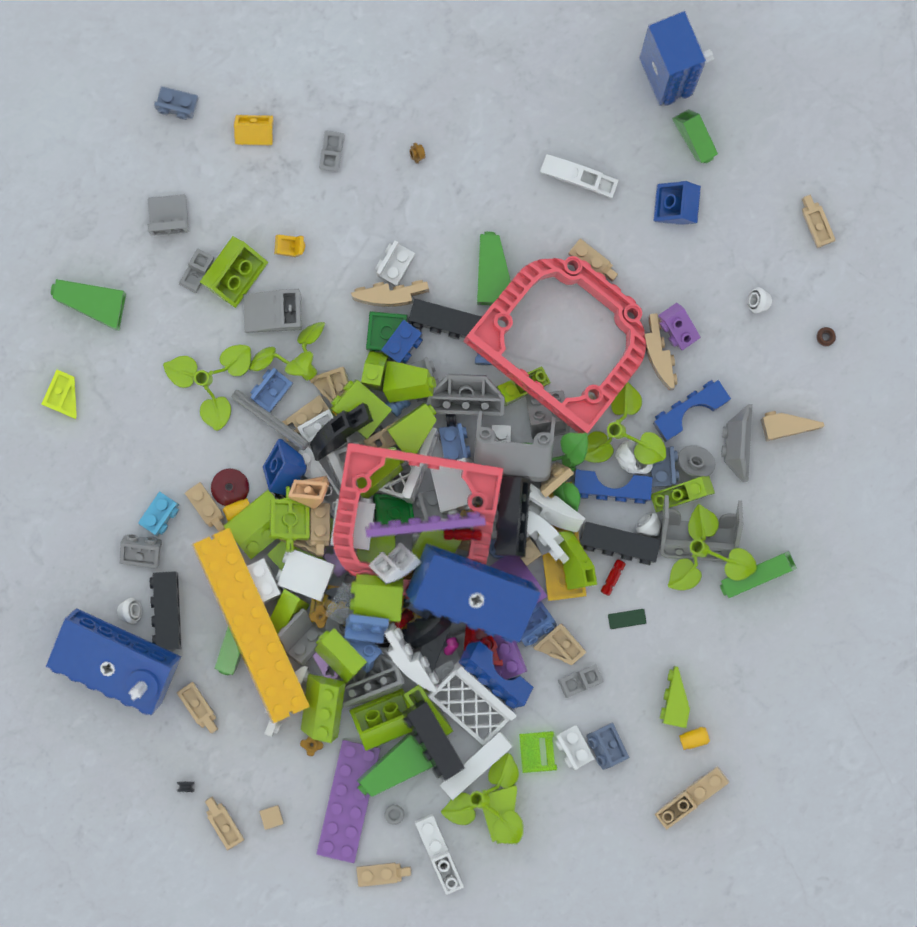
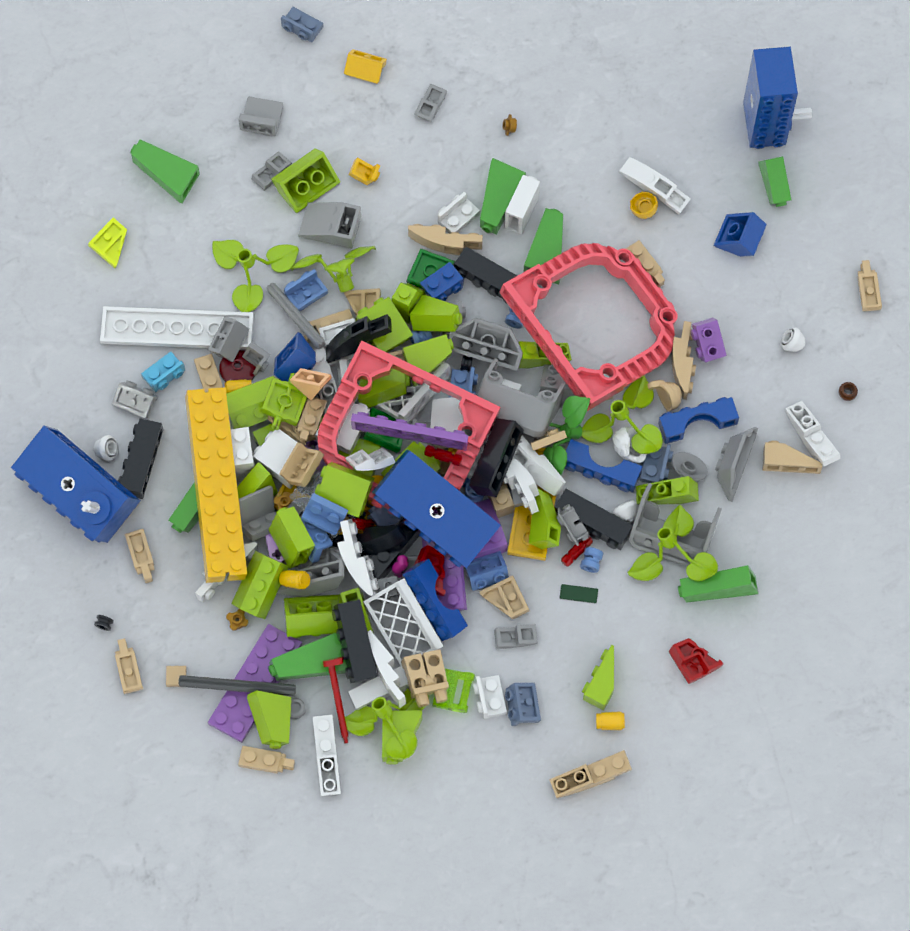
camera: 15 degrees right, 15 degrees down
(157, 465) = (167, 326): none -> white plate
(212, 465) = (228, 339): none -> light grey hinge
(246, 473) = (257, 357): none -> light grey bracket
(328, 583) = (301, 465): none -> tan bracket
(332, 813) = (236, 685): none -> dark grey axle
(356, 696) = (294, 579): none -> yellow piece
(376, 834) = (271, 717): none -> lime slope
(416, 769) = (330, 663): none -> red piece
(430, 229) = (499, 191): none -> bright green slope
(456, 236) = (522, 204): none -> white brick
(466, 751) = (384, 663): none -> white slope
(513, 756) = (426, 677): none -> tan hips
(574, 200) = (644, 205): none -> yellow hair
(597, 554) = (575, 531): none -> light grey hinge
(630, 588) = (591, 560): none -> medium blue wheel
(656, 392) = (668, 393): none -> tan piece
(754, 654) = (693, 660): none -> red slope
(804, 393) = (811, 434): none -> white slope

